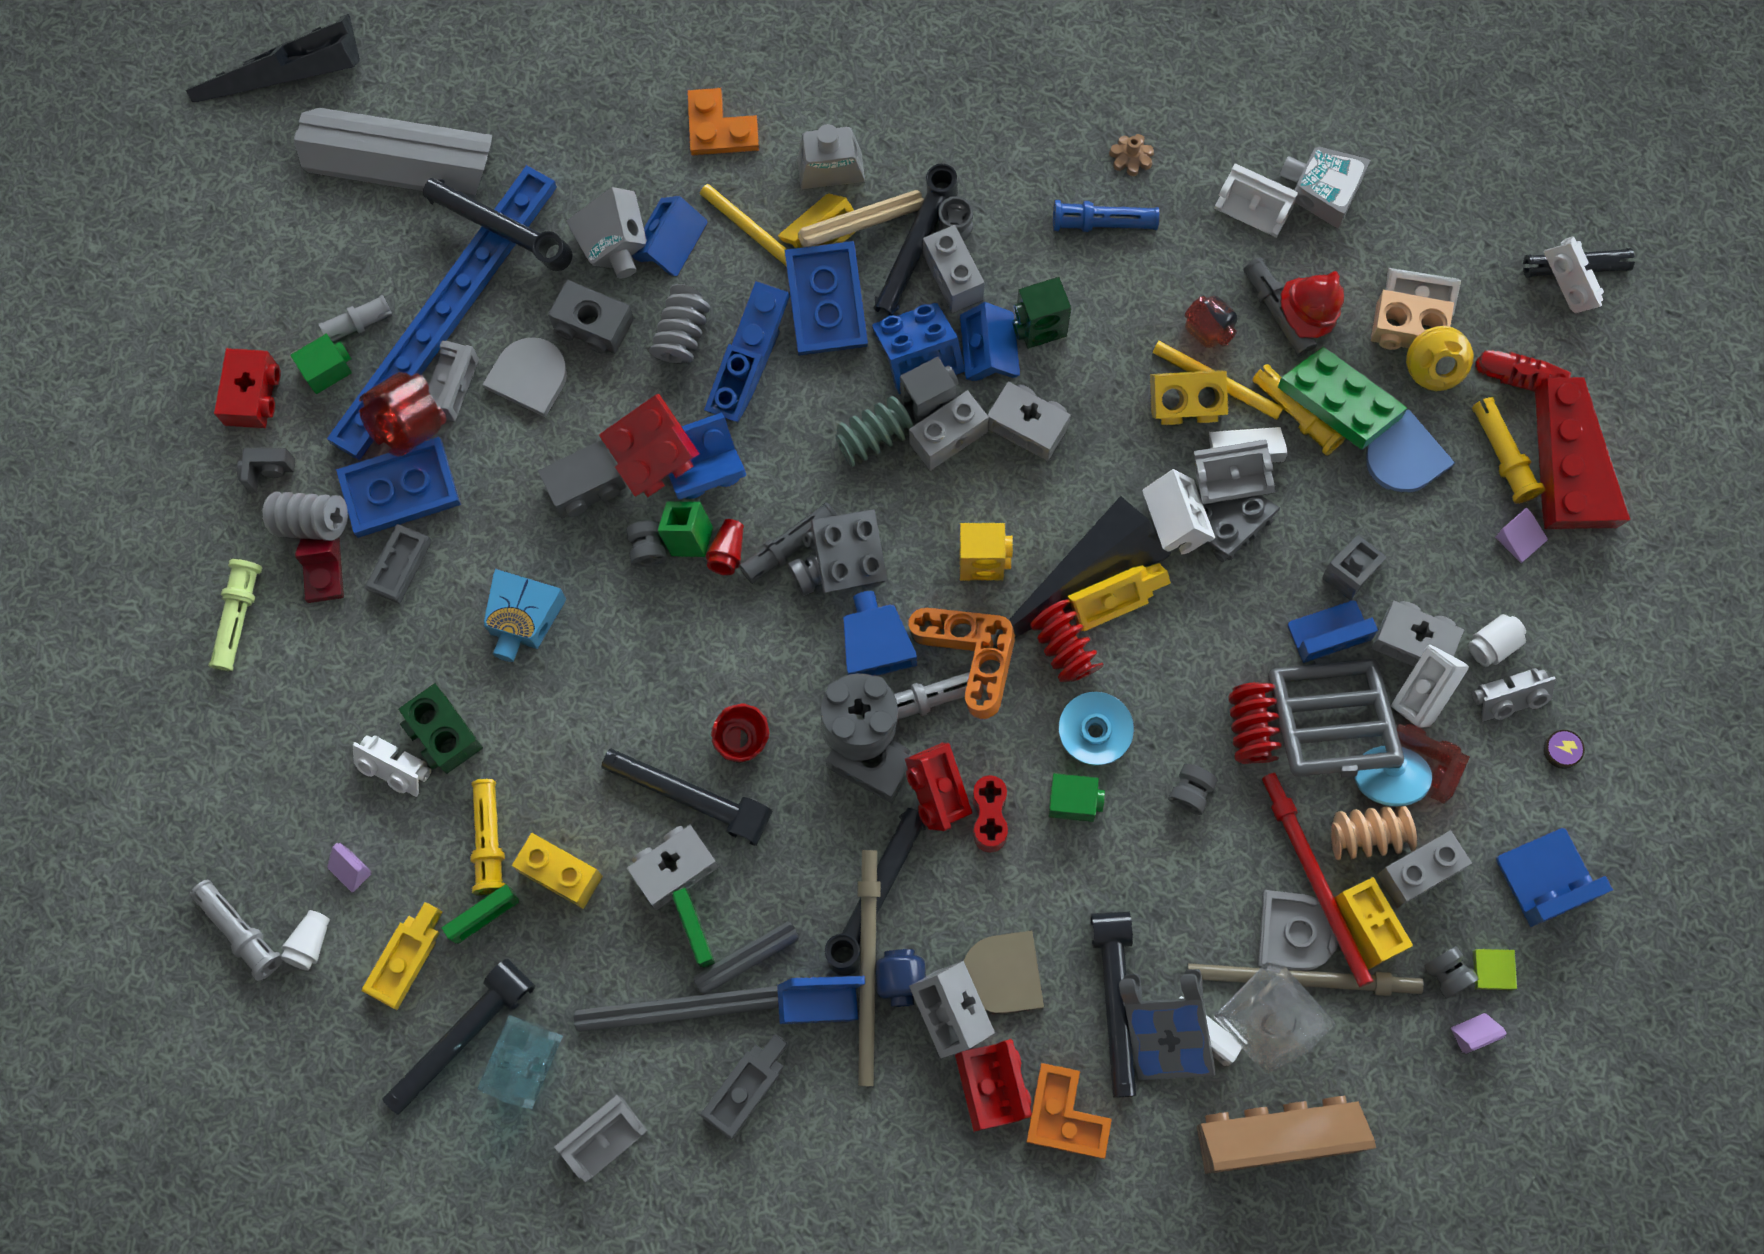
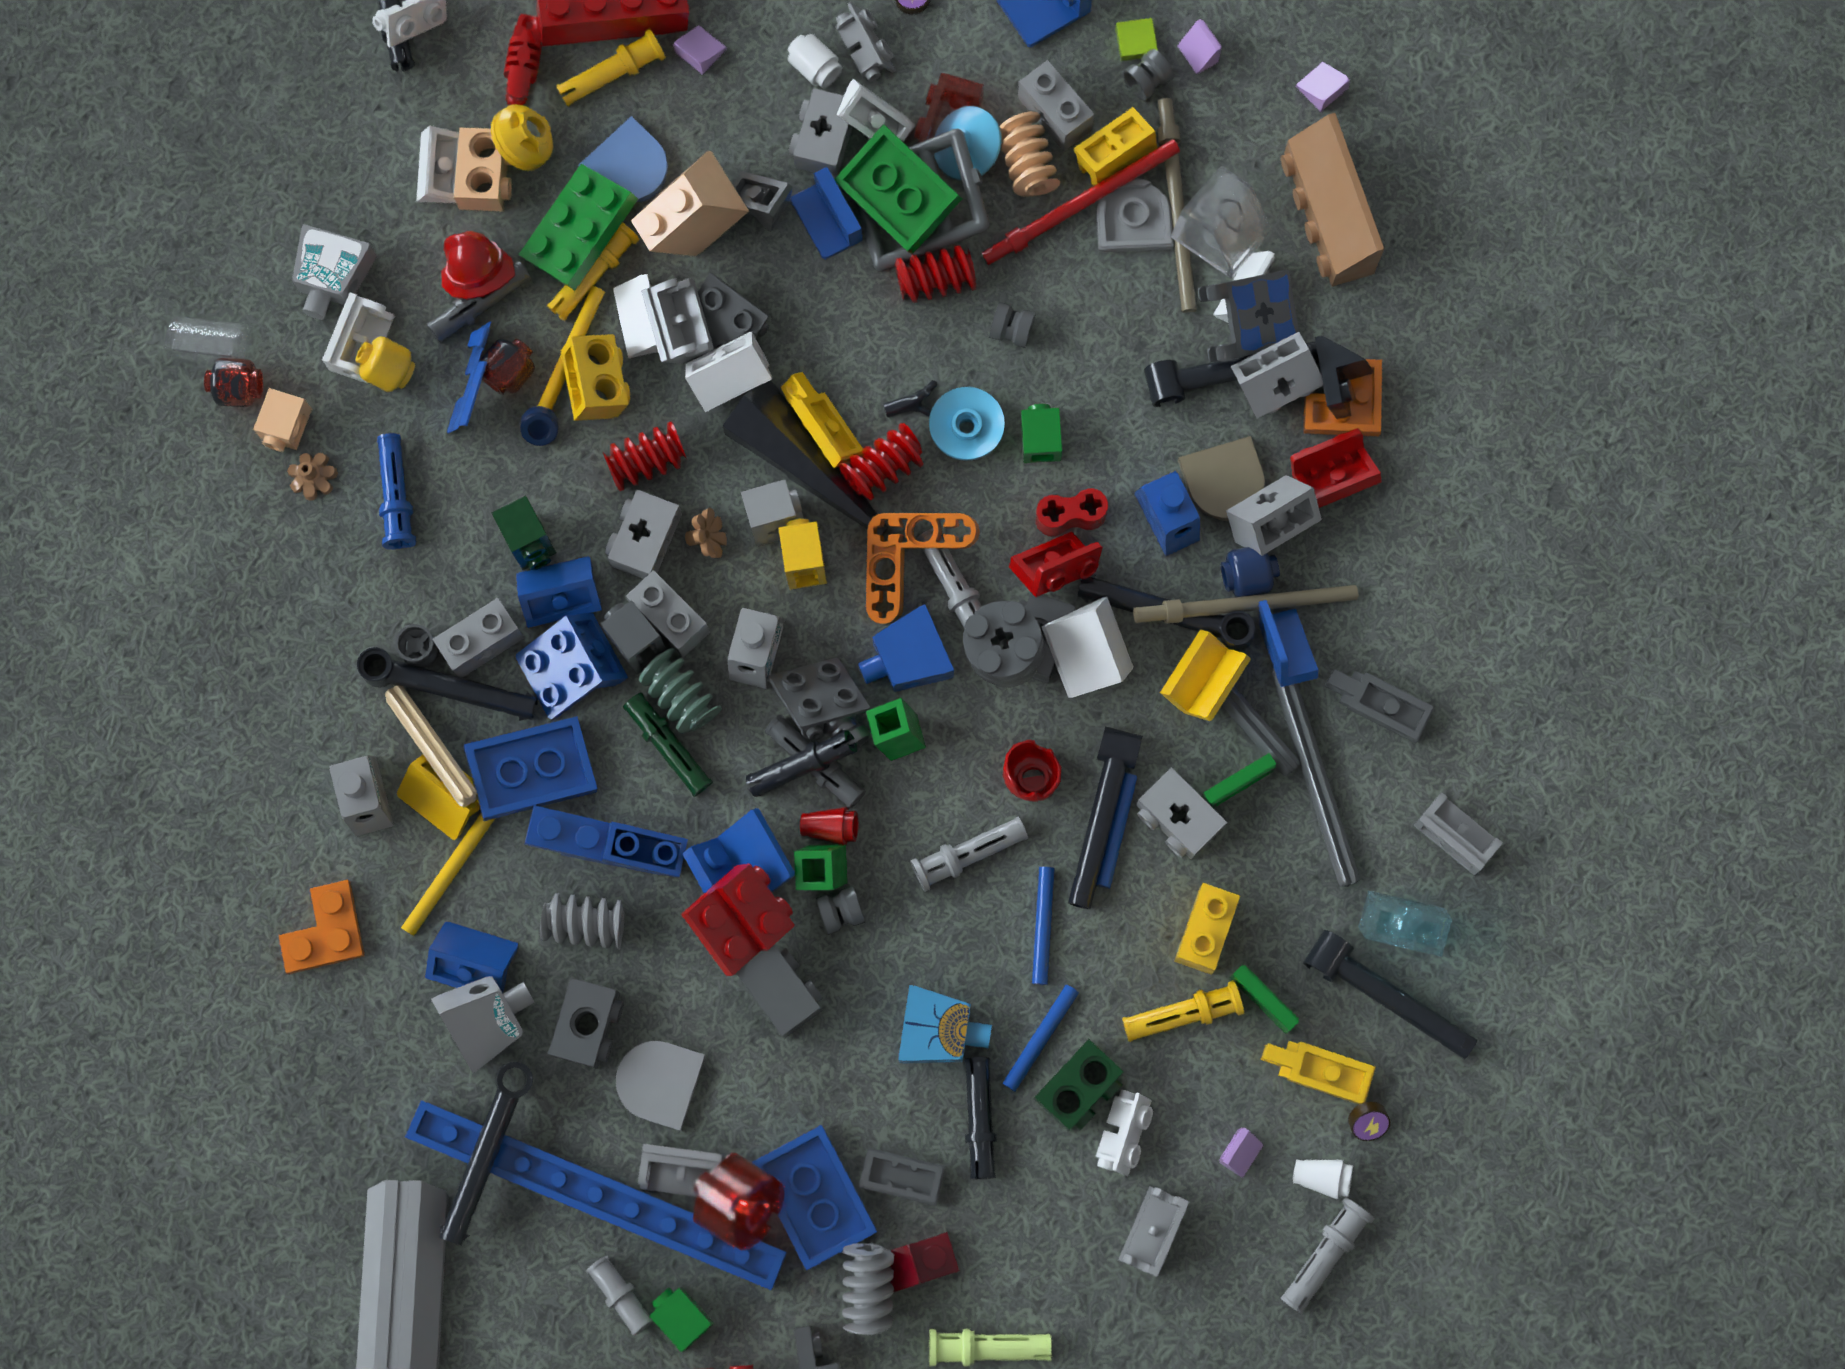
camera: 100 degrees left, 5 degrees up
(295, 774) = (1153, 1231): none -> light grey hinge
(346, 992) = (1369, 1121): none -> tile
(424, 637) = (980, 1118): none -> black pin
(494, 705) = (1040, 1038): none -> blue bar
(597, 724) = (1043, 926): none -> blue bar
(671, 807) = (1117, 831): none -> blue bar
(673, 650) = (952, 866): none -> light grey pin
(786, 534) = (815, 757): none -> black pin
(801, 613) = (895, 729): none -> green brick
(802, 913) = (1204, 676): none -> yellow panel
(829, 417) = (655, 727): none -> dark green pin
(847, 805) = (1088, 648): none -> white slope
(906, 502) = (755, 647): none -> light grey torso
(974, 906) = (1169, 511): none -> blue torso
(1021, 477) = (707, 533): none -> medium nougat plant
(1029, 528) = (770, 508): none -> light grey brick
(1097, 1100) = (1337, 369): none -> black slope
(1099, 1041) = (1278, 375): none -> light grey brick
(1102, 429) = (645, 456): none -> red piece
(1127, 682) = (911, 402): none -> black bar
(1149, 344) = (539, 425): none -> dark blue tile
(1184, 130) = (282, 420): none -> light nougat brick
(1226, 95) = (234, 382): none -> clear red head
(1226, 218) = (385, 364): none -> yellow head
(1235, 295) = (465, 404): none -> blue piece
(1272, 80) = (207, 339): none -> clear brick
(1343, 493) = (691, 210): none -> light nougat slope
(1345, 693) = (898, 189): none -> green plate
(1423, 1159) = (1323, 85): none -> lavender slope

